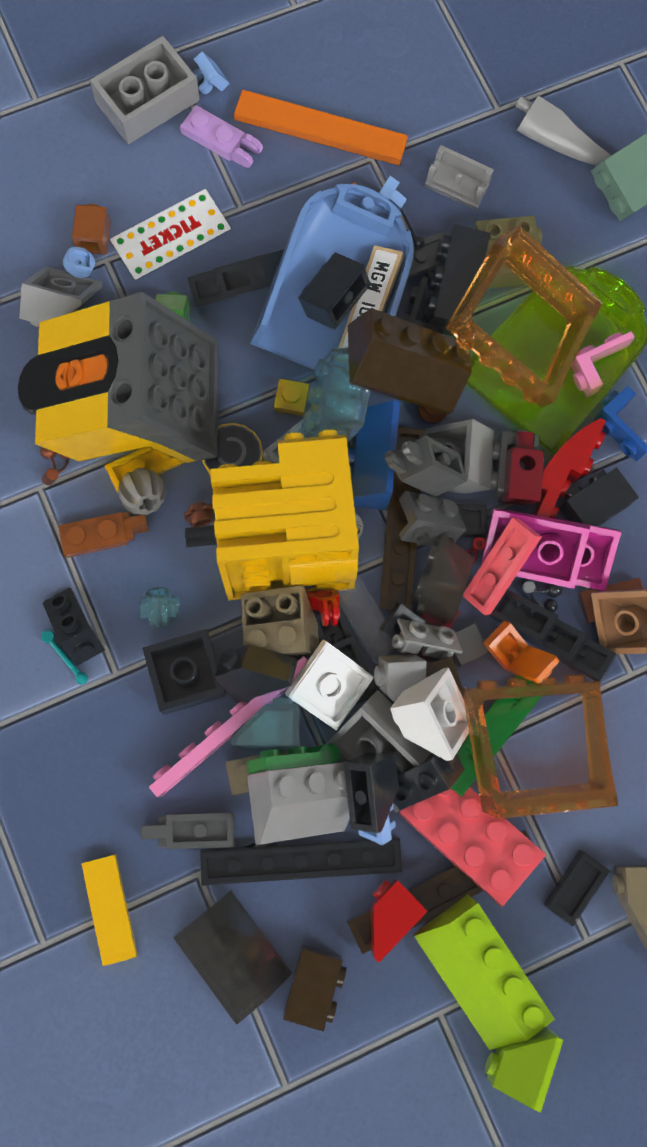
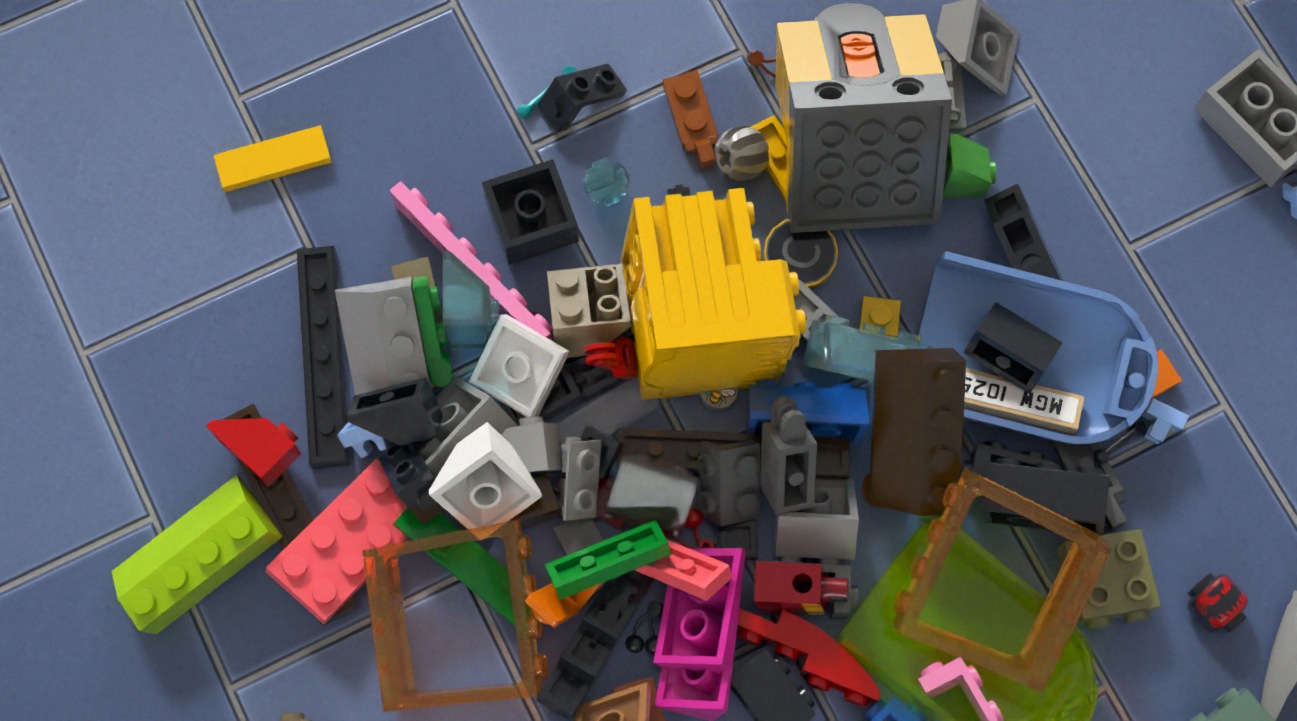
camera: 95 degrees right, 5 degrees down
(78, 262) = (1025, 65): light blue tile -> none
(91, 228) = (1070, 74): dark orange brick -> none
(170, 234) = (1081, 168): white sticker -> none
(192, 831) = (355, 236): dark grey hinge -> none
(220, 136) = (1223, 213): lavender hinge -> none
(233, 956) = (220, 284): clear smoke slope -> none
(254, 672) = (529, 278): black slope -> none
(313, 988) = (184, 371): dark brown brick -> none
(320, 127) = (1256, 339): orange tile -> none
(459, 177) = (1206, 512): light grey hinge -> none
(500, 616) = (608, 559): none -> green plate
(525, 1068) = (89, 598): lime slope -> none
(526, 181) = (1217, 603): none -> black head
(576, 888) = (290, 673): black tile -> none

